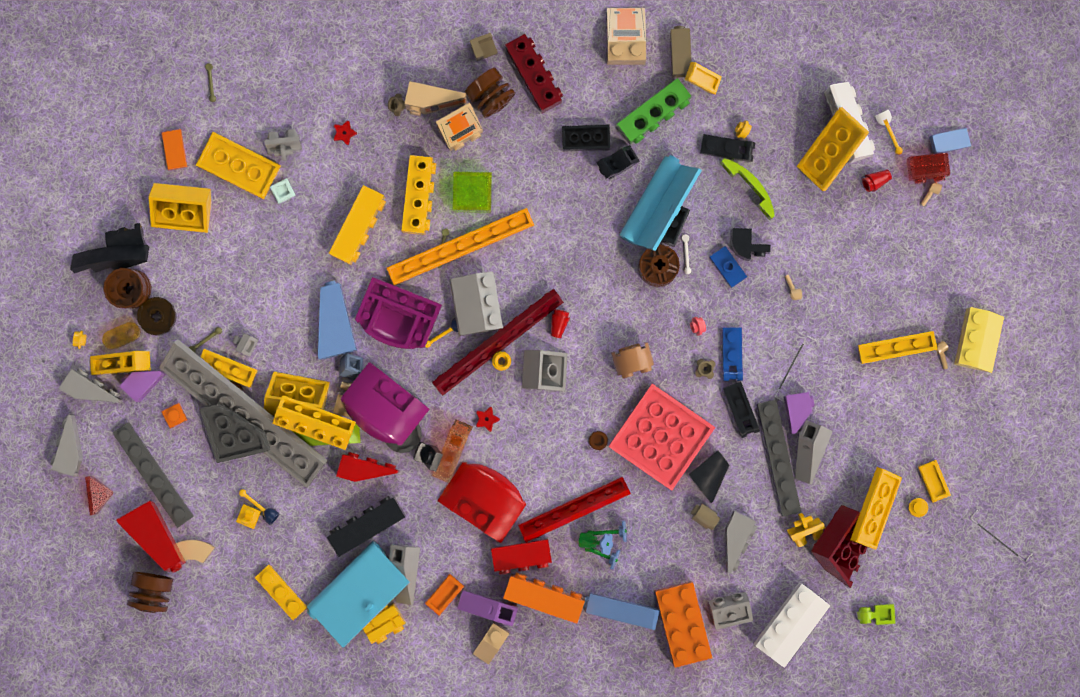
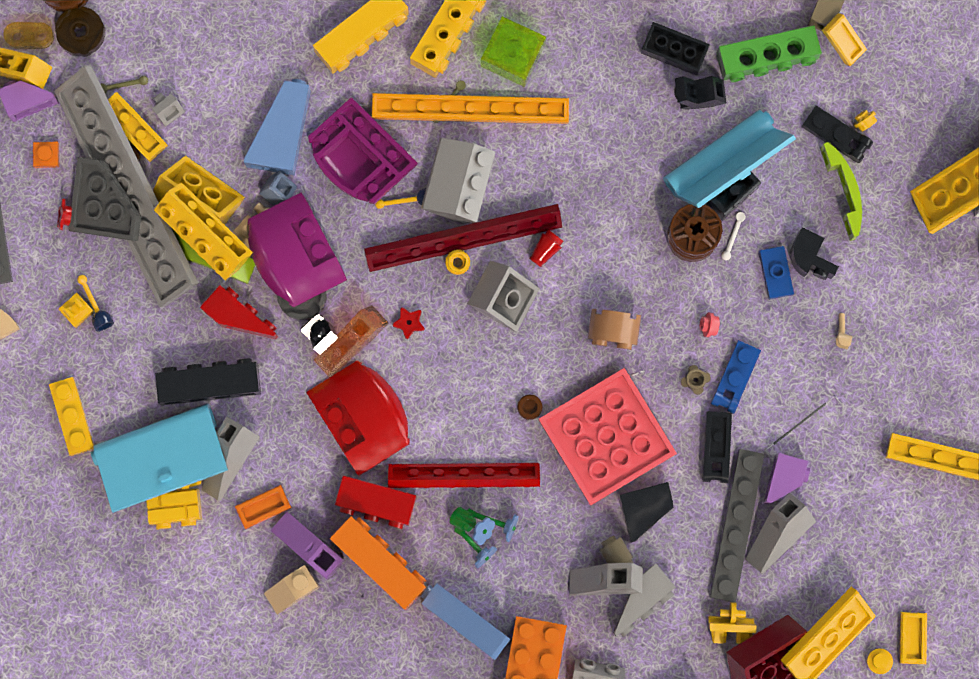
camera: 20 degrees right, 5 degrees down
(209, 453) = (64, 215): none -> red plate
(706, 538) = (606, 579): none -> light grey slope

